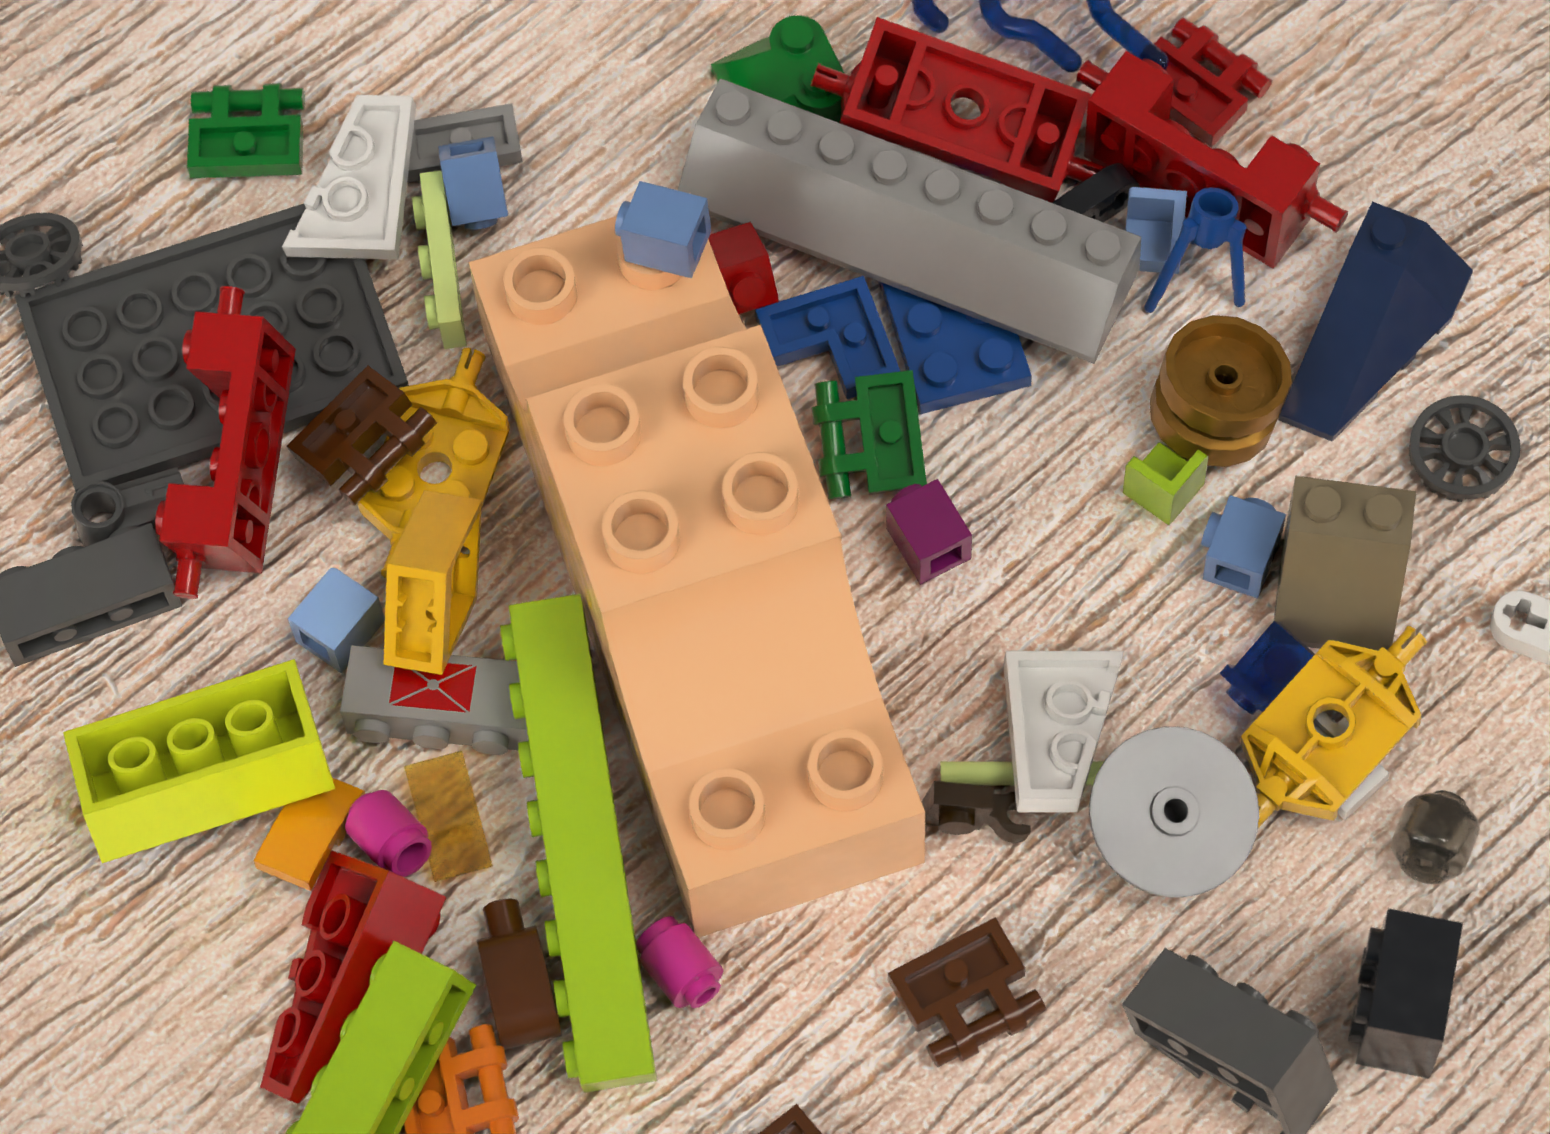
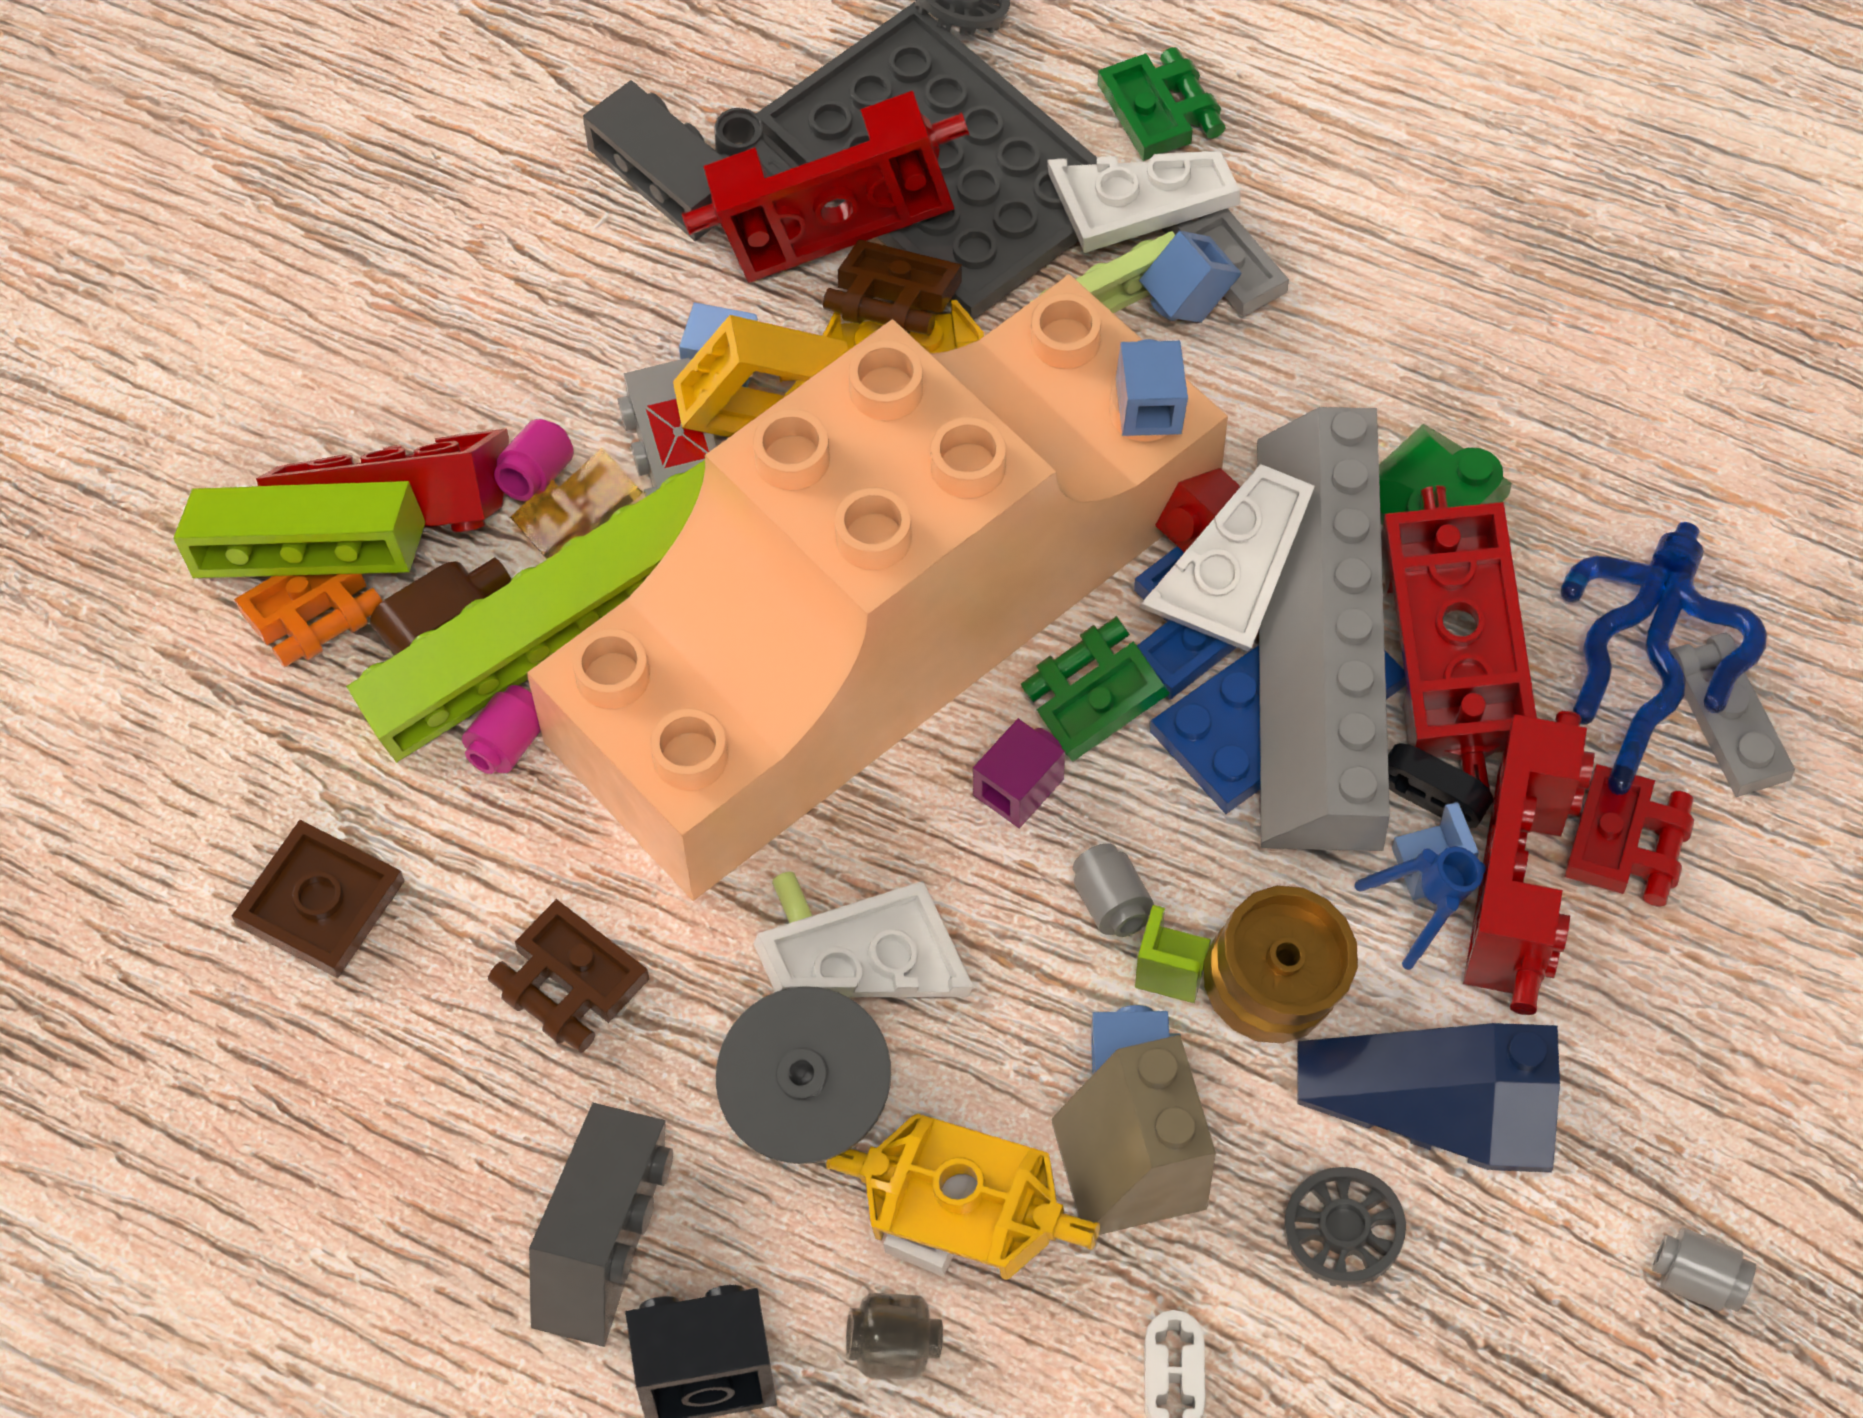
camera: 65 degrees right, 5 degrees down
(197, 761) = (534, 291): neon yellow brick -> none
(306, 834) = (514, 399): light orange slope -> none
(815, 257) = (1236, 561): none -> white wing
(967, 807) = (744, 901): dark brown plate -> none
(1079, 501) = (1112, 890): none -> light grey brick
(1266, 668) = (1006, 1114): clear blue bracket -> none

